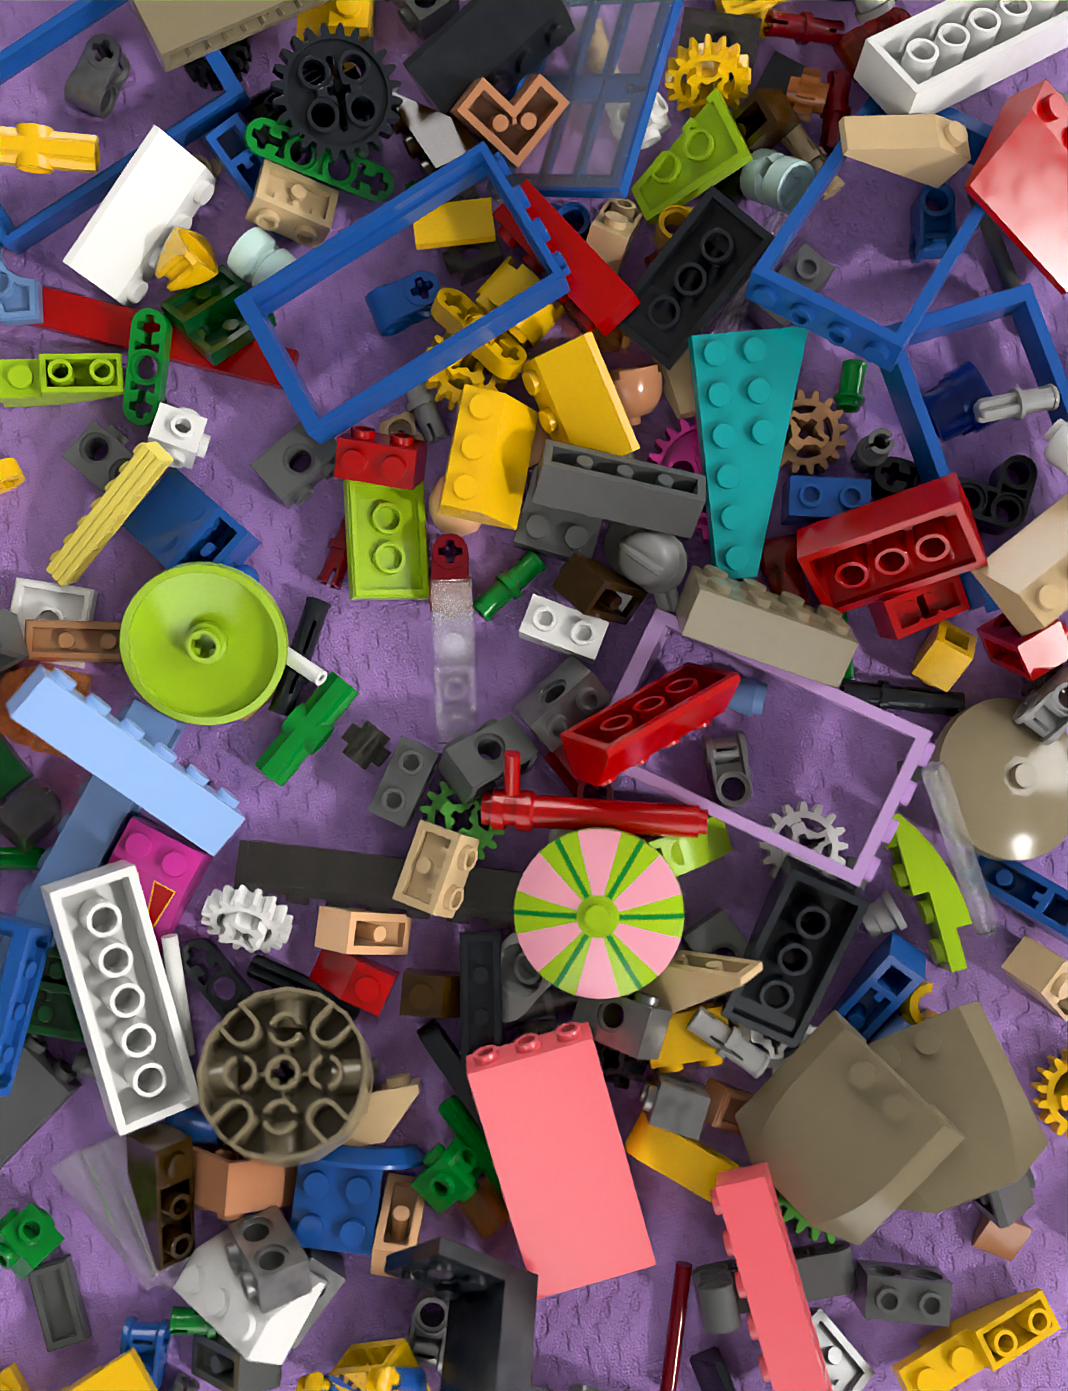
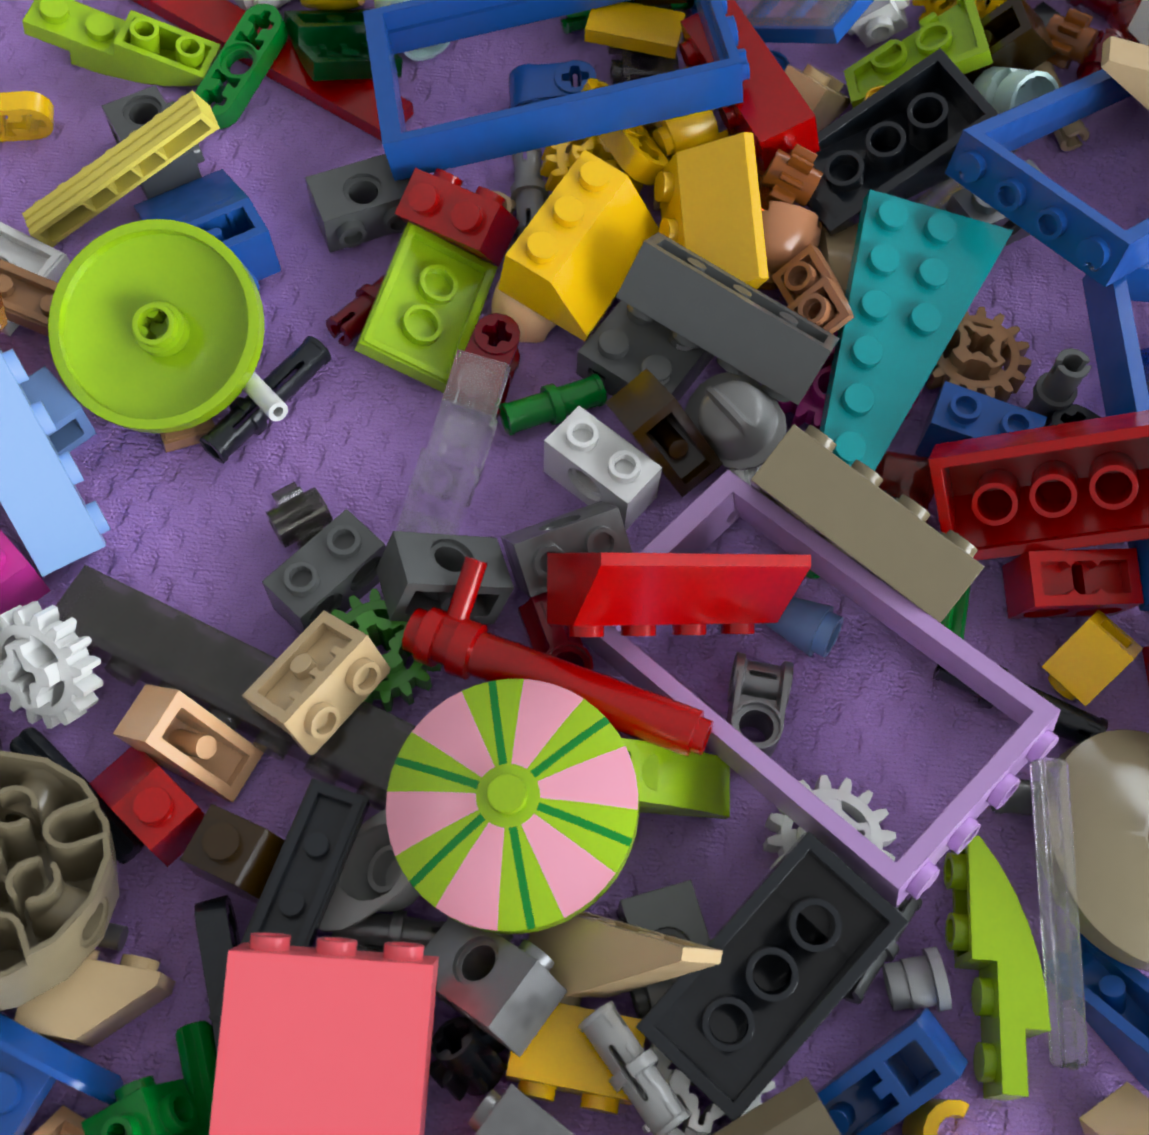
camera: 15 degrees right, 20 degrees down
(180, 434) = (244, 133): white brick -> none
(306, 729) = (235, 478): green piece -> none
(627, 342) = (792, 176): none -> dark orange gear
(674, 436) = (813, 290): none -> nougat slope
(850, 396) = (1045, 329): green pin -> none

